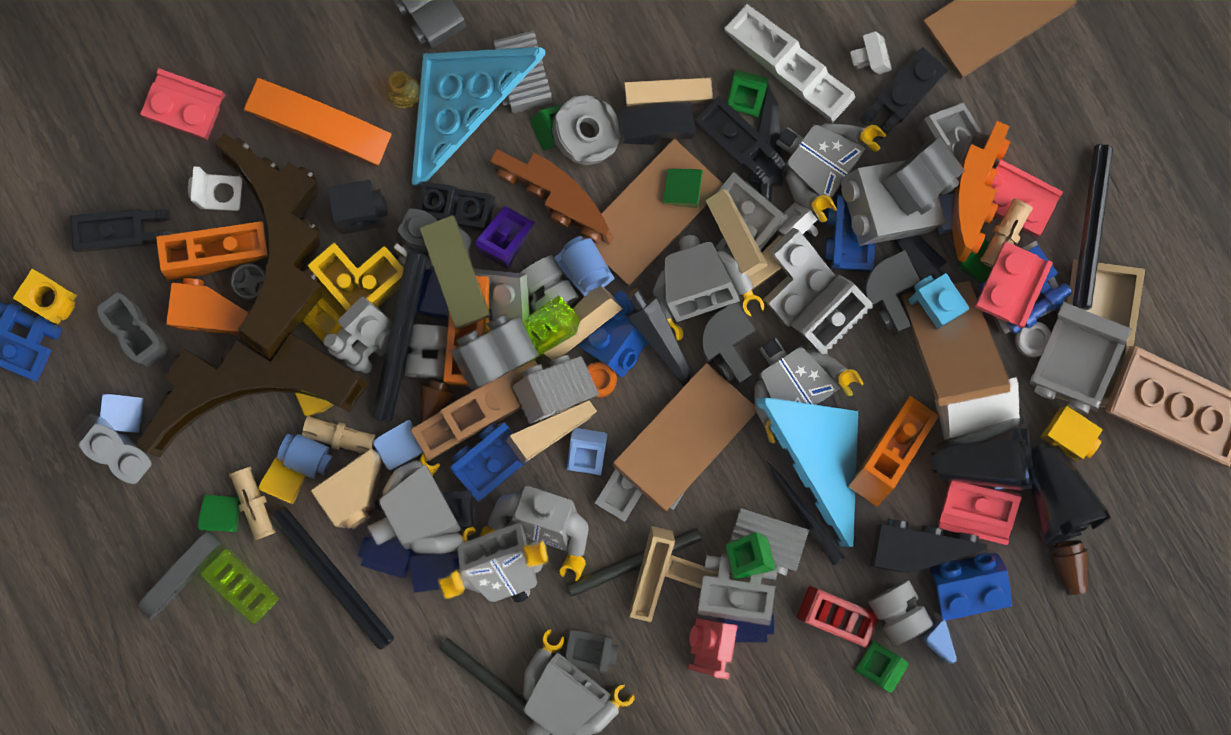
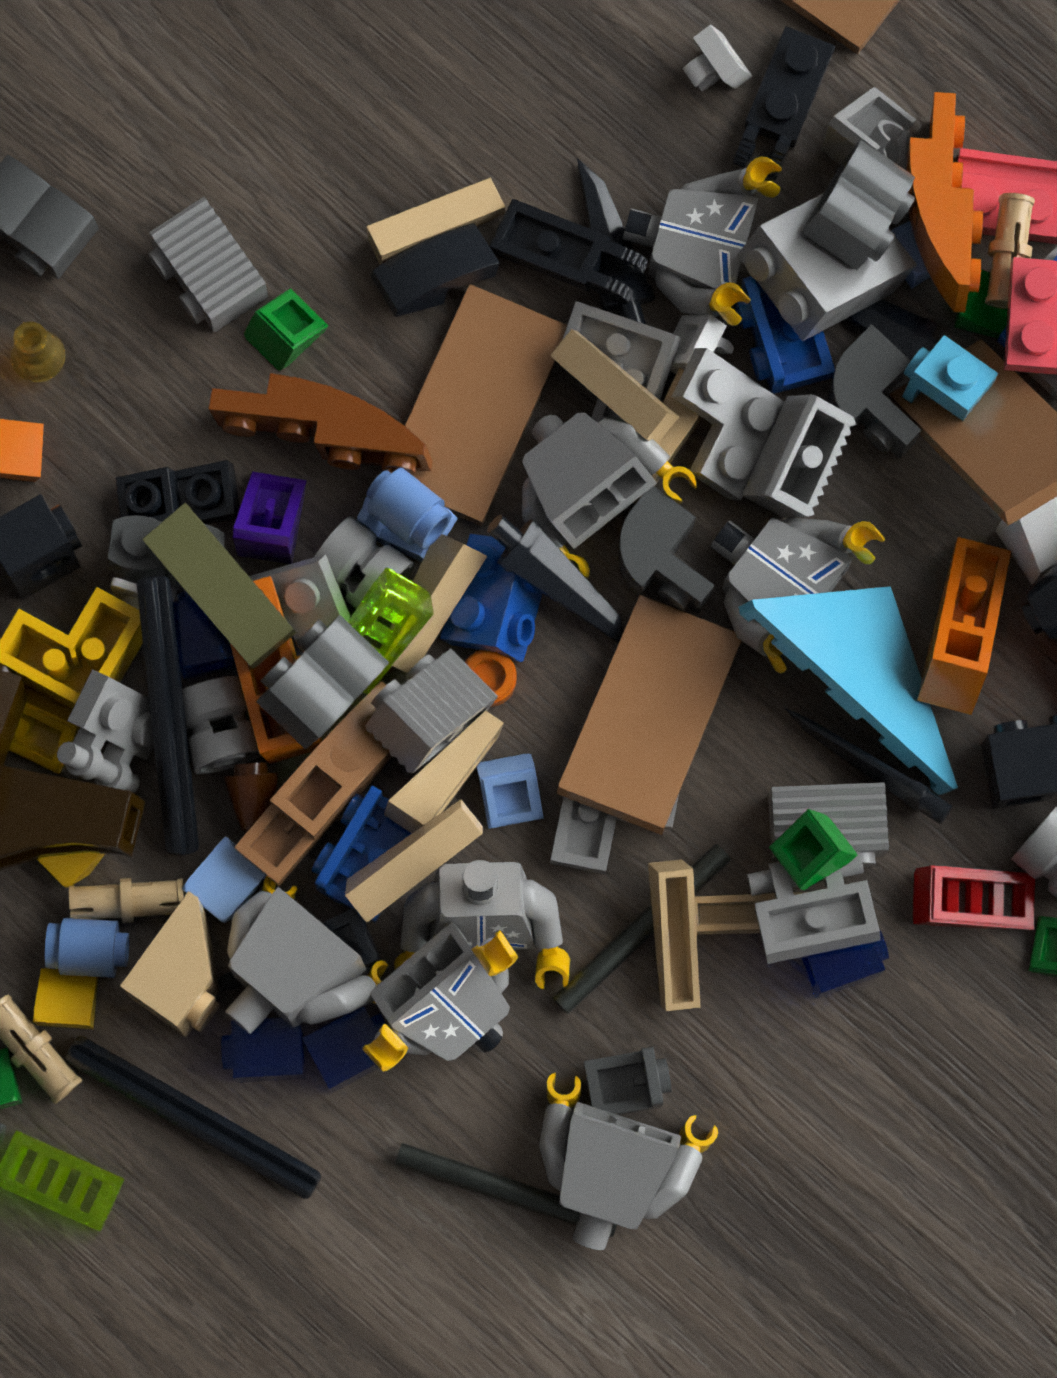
camera: 25 degrees left, 5 degrees down
(458, 95) = (126, 330): medium azure tile -> none
(510, 476) = (411, 860): none -> tan piece
(571, 140) = (318, 338): light grey tile -> none
(683, 187) = (510, 349): green slope -> none
(712, 646) = (806, 1006): coral plate -> none
(747, 92) = (552, 181): green slope -> none
(789, 63) = (599, 117): white slope -> none

